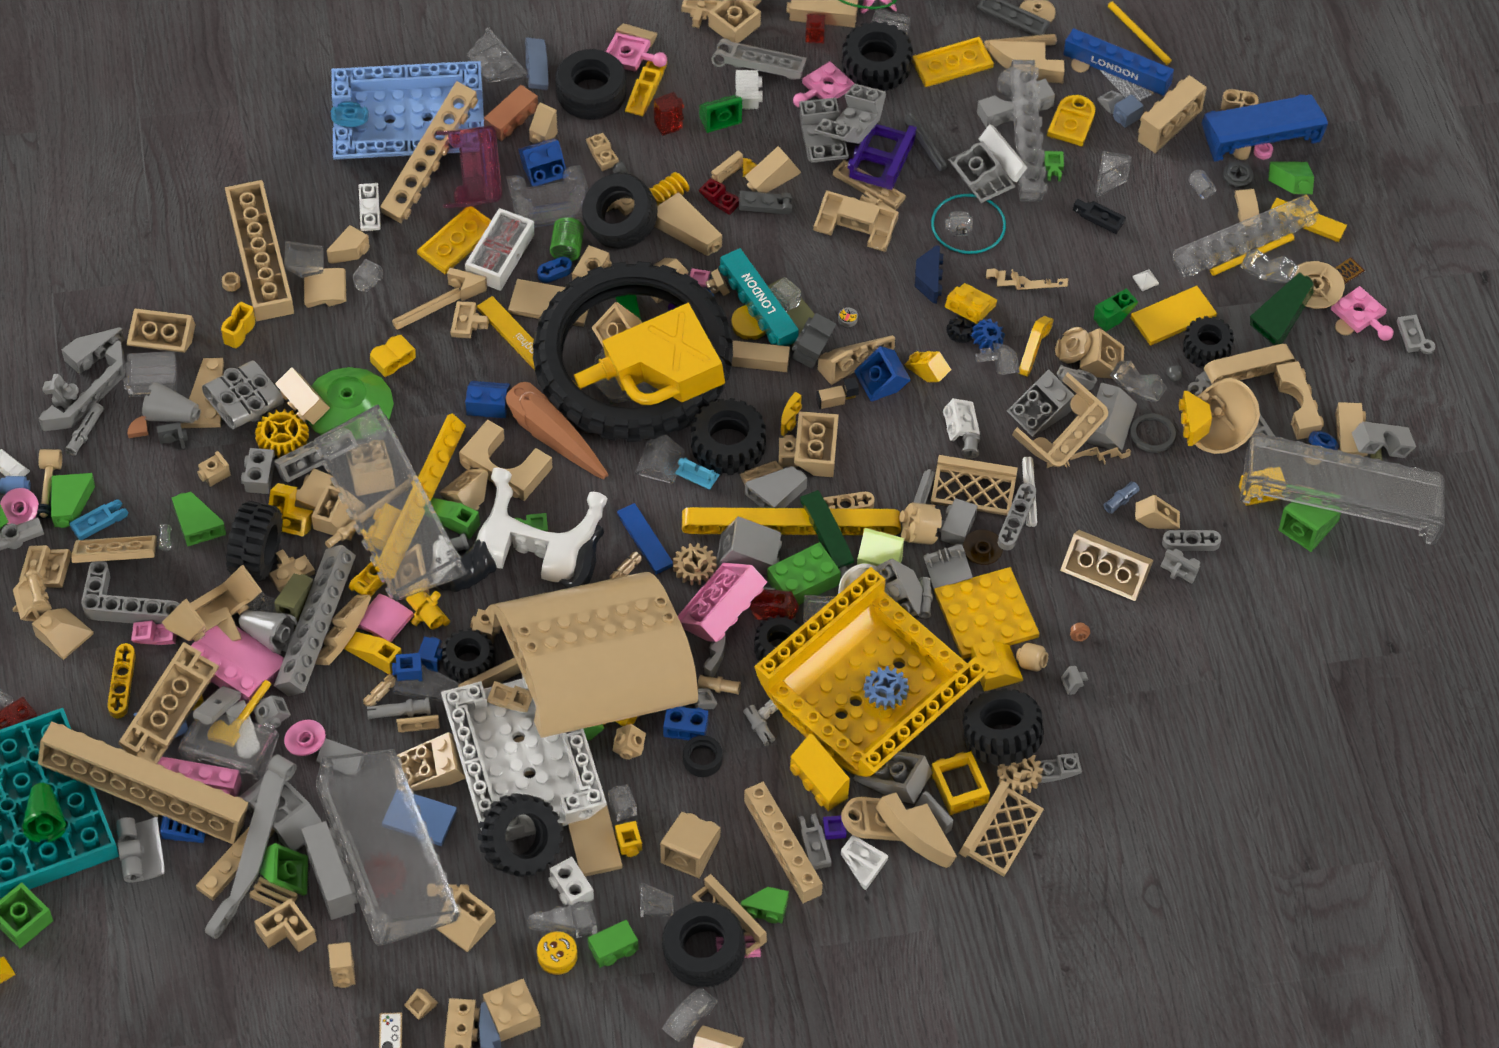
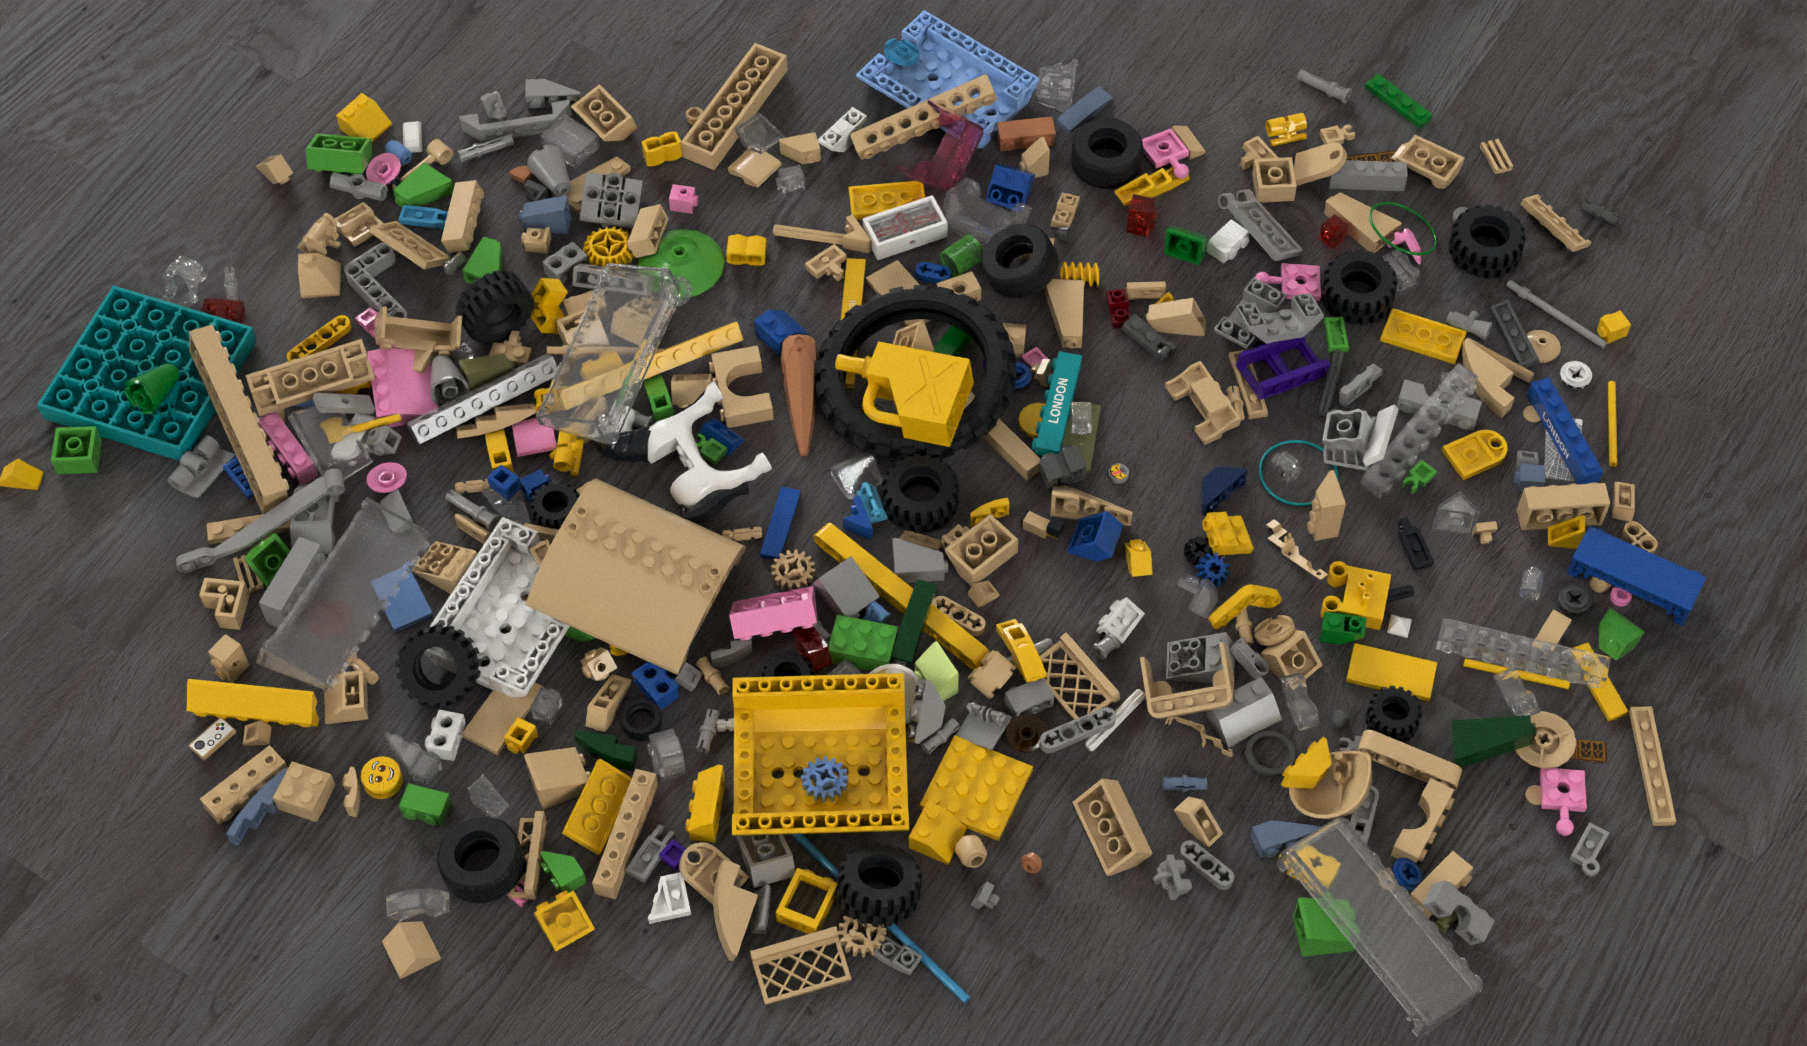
camera: 45 degrees right, 0 degrees up
(131, 495) = (462, 216): none -> tan brick
(202, 443) = (547, 213): none -> sand blue slope
(297, 352) = (683, 199): none -> bright pink brick
(400, 979) = (252, 703): none -> yellow slope
(525, 507) = (722, 434): none -> blue slope
(545, 977) = (353, 790): none -> tan slope
(665, 764) = (606, 703): none -> tan slope
(701, 796) = (607, 748): none -> dark green slope
(705, 490) = (859, 521): none -> blue slope
(743, 839) = (597, 807): none -> yellow tile
(752, 763) = (666, 754): none -> clear brick
(789, 547) = (877, 613): none -> medium blue tile
(805, 936) = (563, 920): none -> yellow plate
(844, 475) = (982, 593): none -> tan slope
(896, 105) = (1336, 334): none -> bright green plate
(922, 489) = (1022, 650): none -> yellow slope
(947, 114) = (1359, 385): none -> light grey hinge
(974, 29) = (1469, 323): none -> light grey piece
(1025, 230) = (1327, 509): none -> tan slope
(1046, 753) = (894, 929): none -> dark azure piece
(1048, 359) = (1244, 627): none -> tan pin
(1088, 12) = (1573, 367): none -> white gear
(1102, 274) = (1364, 593): none -> yellow piece
(1136, 171) = (1484, 530): none -> tan tile
(1190, 131) = (1567, 533): none -> yellow slope
(1203, 78) = (1623, 501): none -> tan slope
(1218, 482) = (1276, 836): none -> sand blue slope
(1396, 249) = (1652, 766): none -> tan plate

